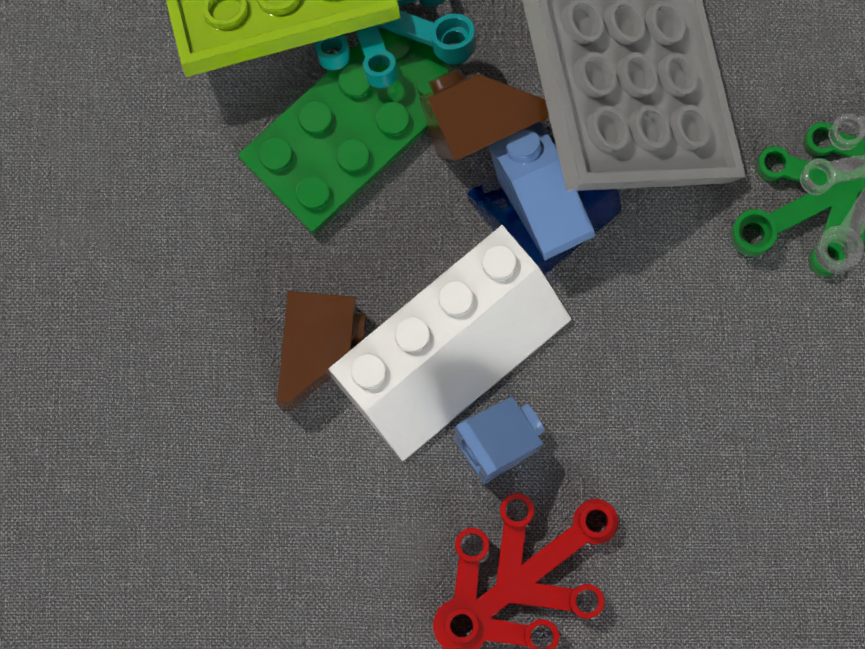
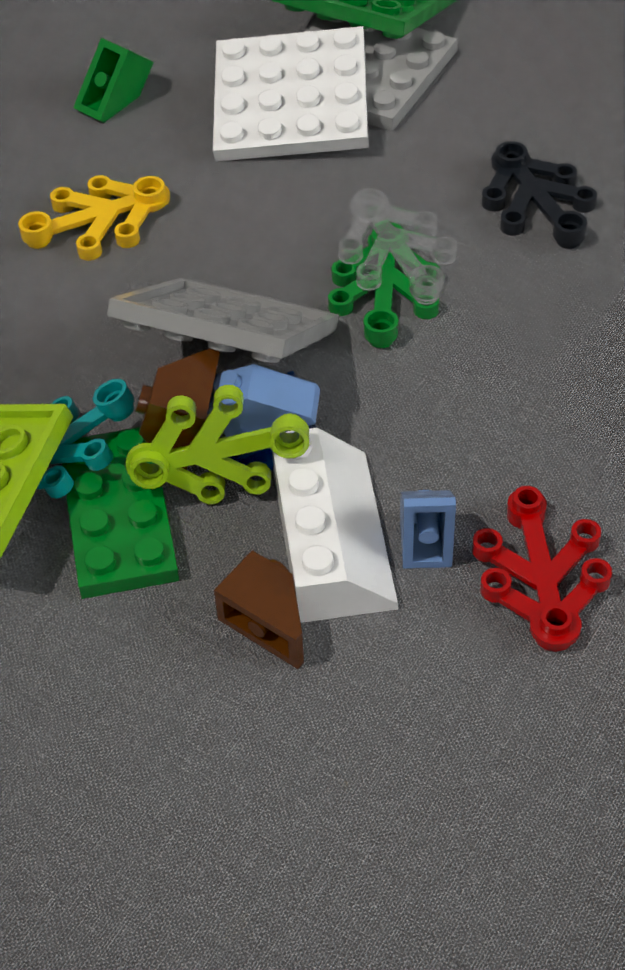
camera: 55 degrees left, 30 degrees down
(436, 184) = (211, 451): none -> lime plant

